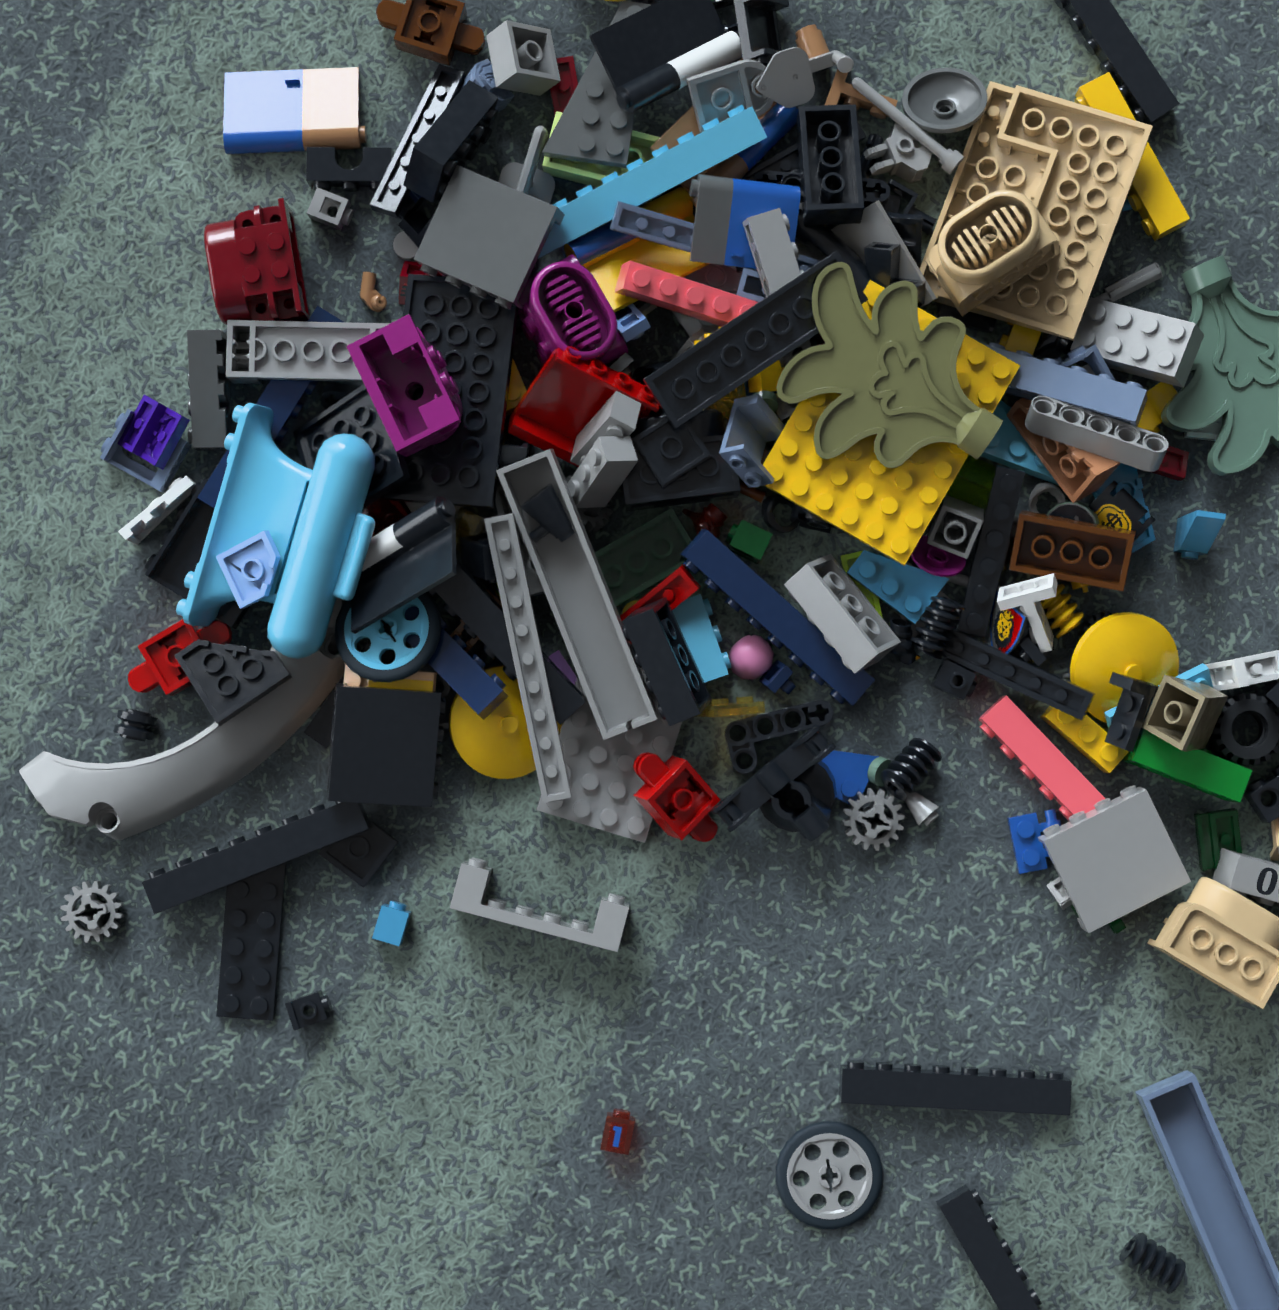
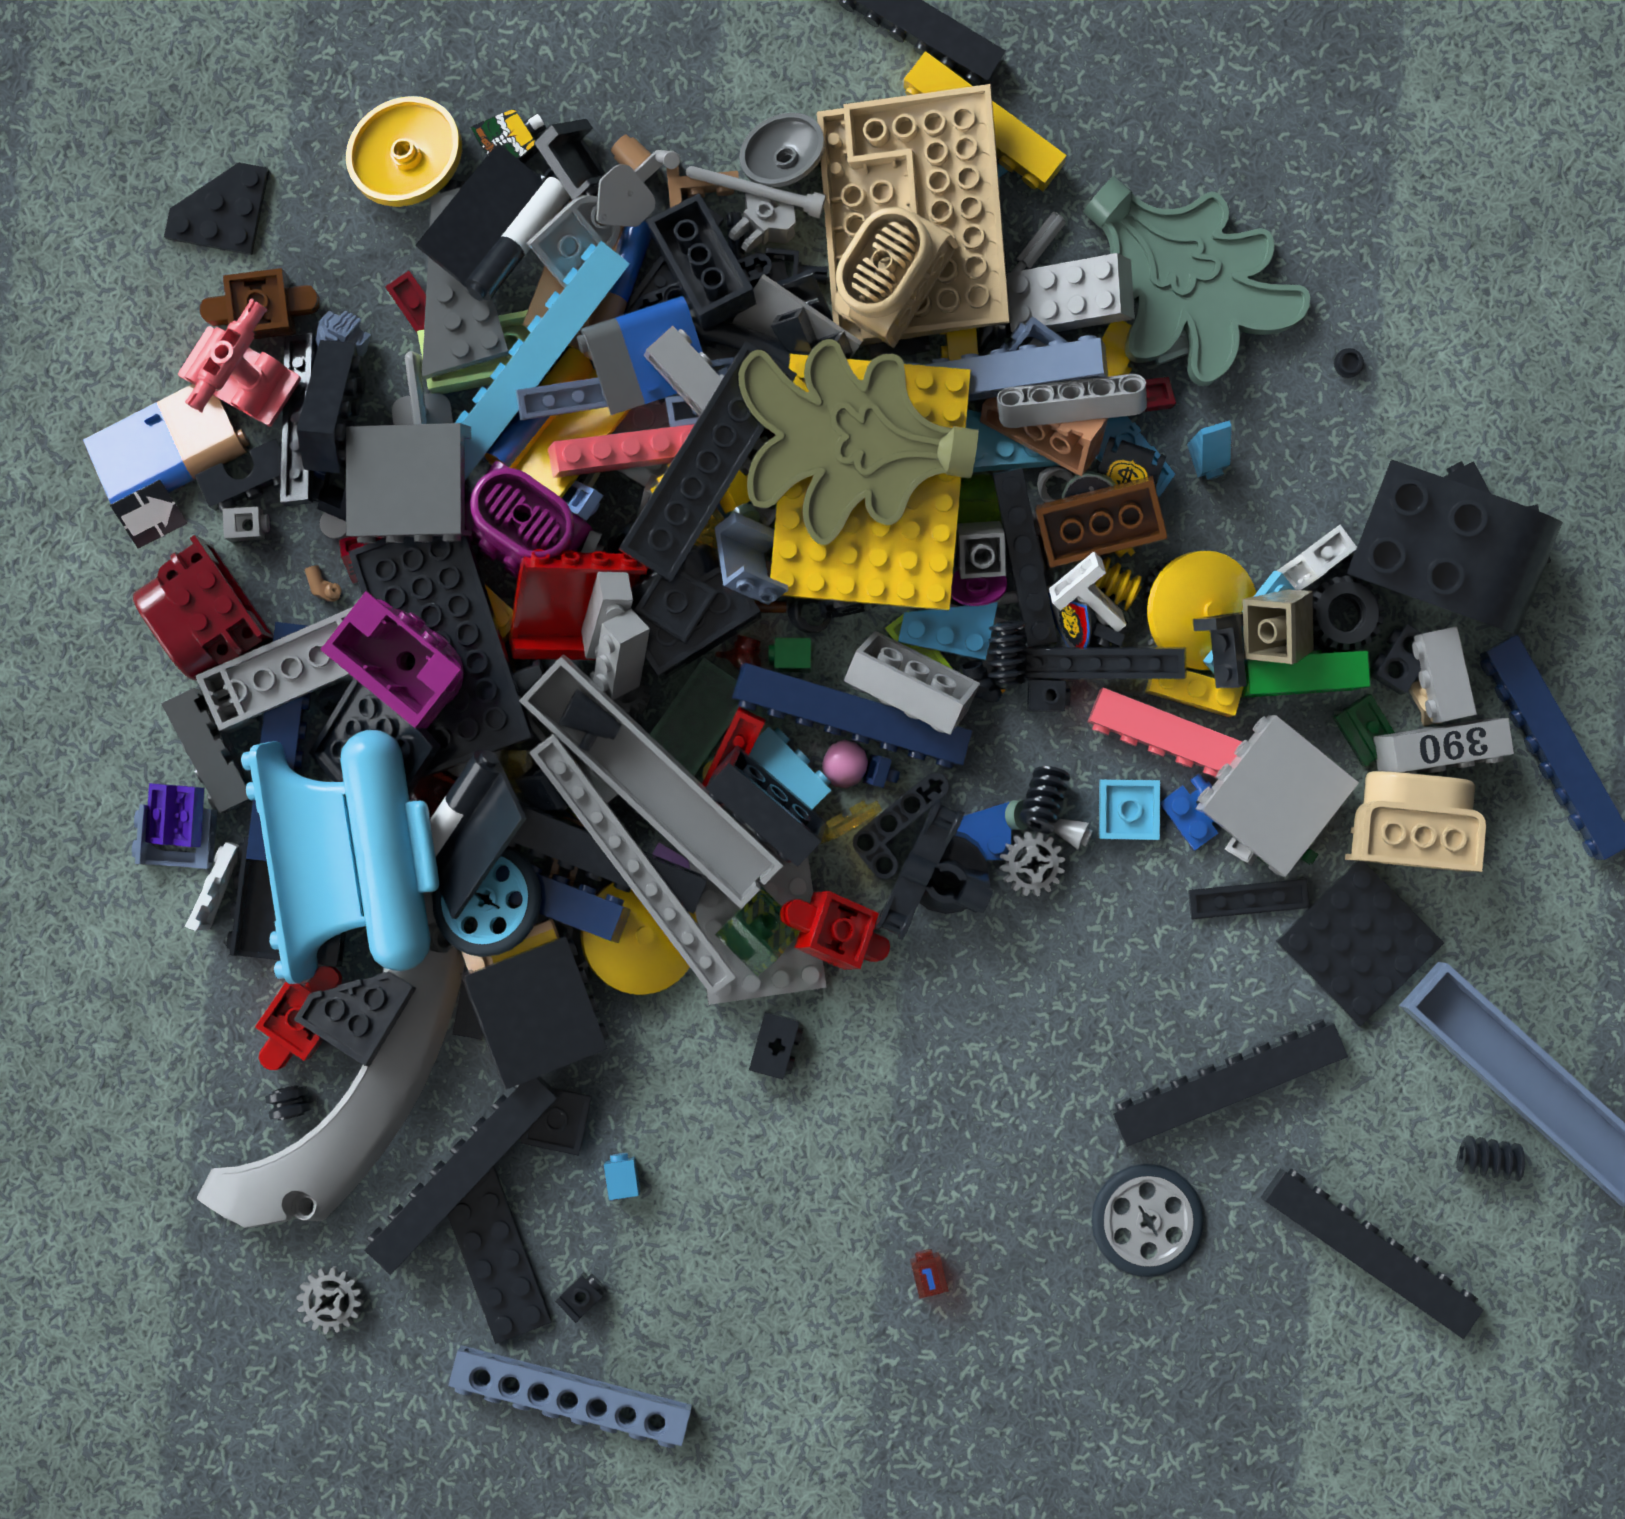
camera: 30 degrees left, 0 degrees up
(250, 568) = (328, 903): light blue plate -> none
(251, 162) = (148, 514): none -> sticker
(255, 1075) = (558, 1382): none -> sand blue brick
(383, 76) = (237, 374): none -> coral plate
(471, 893) = (683, 1111): light grey plate -> none
(523, 58) = (362, 294): light grey brick -> none
(562, 881) = (763, 1059): none -> black brick
(607, 767) = (757, 932): none -> clear green slope
(979, 811) = (1129, 809): none -> medium azure plate
(1047, 938) = (1248, 898): none -> black tile
(1126, 1020) = (1359, 942): none -> black plate

